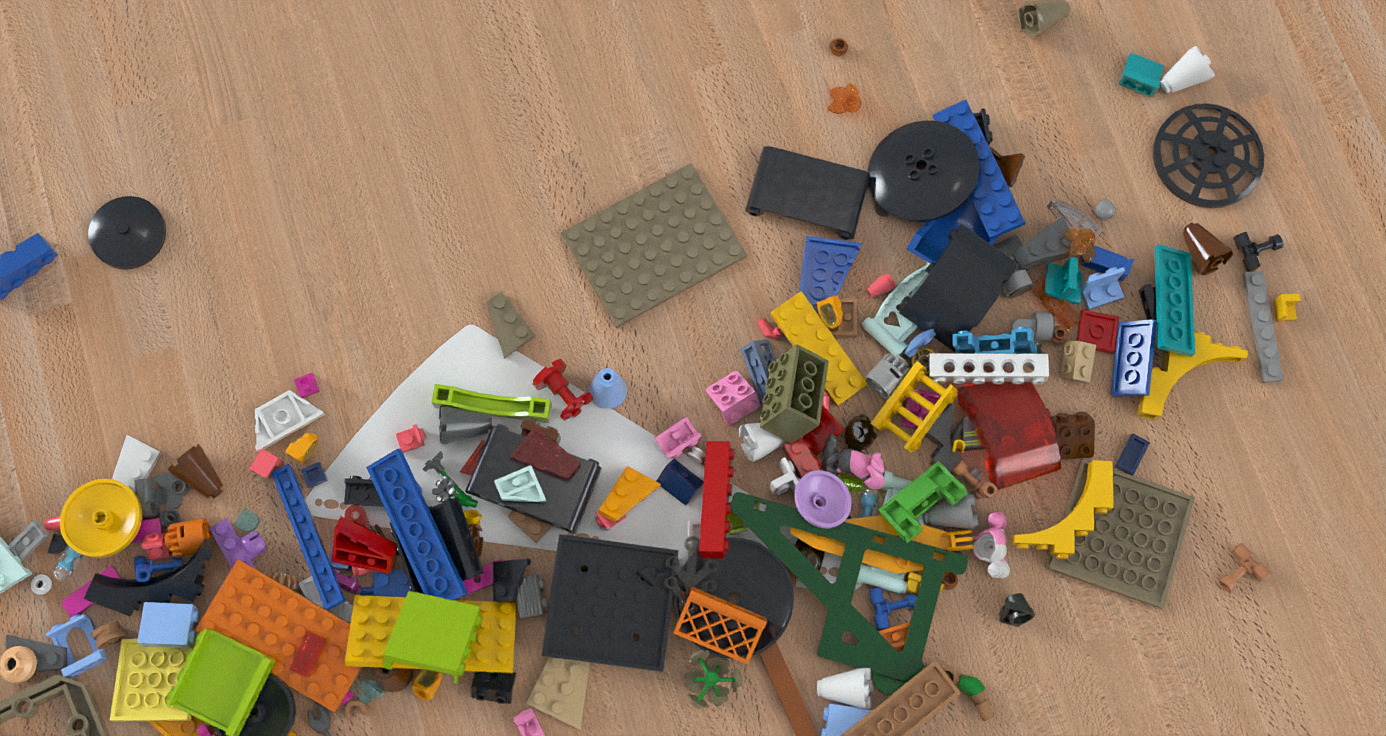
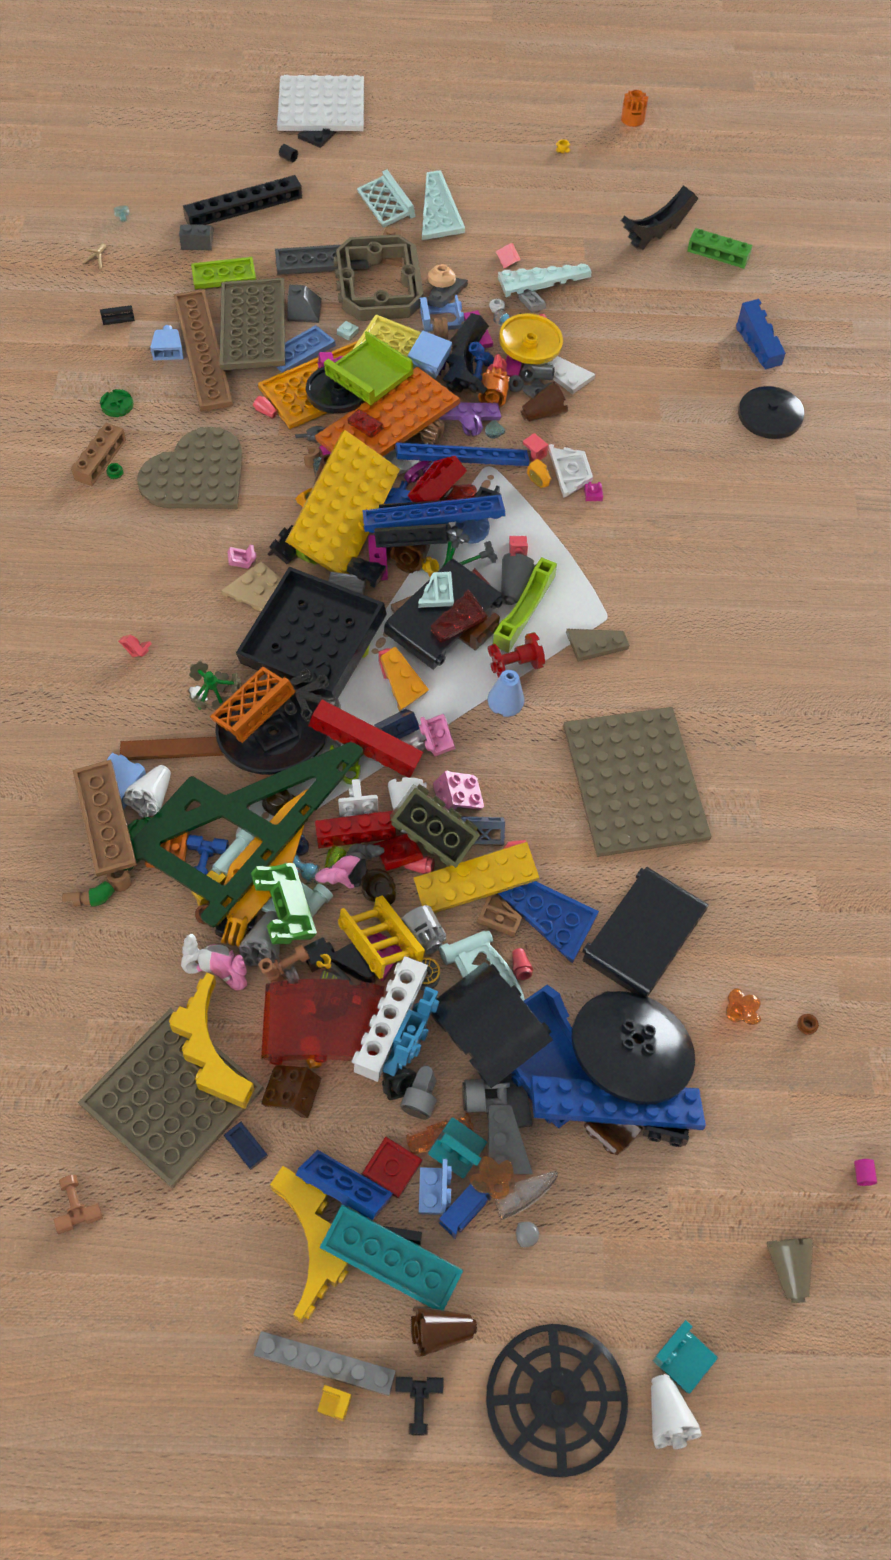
camera: 110 degrees right, 15 degrees down
(314, 475) = (513, 476): dark blue plate -> none
(433, 634) = (337, 491): lime panel -> none
(829, 493) = (326, 798): lavender dish -> none
(830, 311) = (509, 898): rock -> none
(923, 338) = (446, 967): medium blue dish -> none
(1017, 609) = (146, 961): pearl dark grey piece -> none
(1060, 340) = (403, 1129): dark orange plate -> none
(1078, 361) = (365, 1127): tan bracket -> none

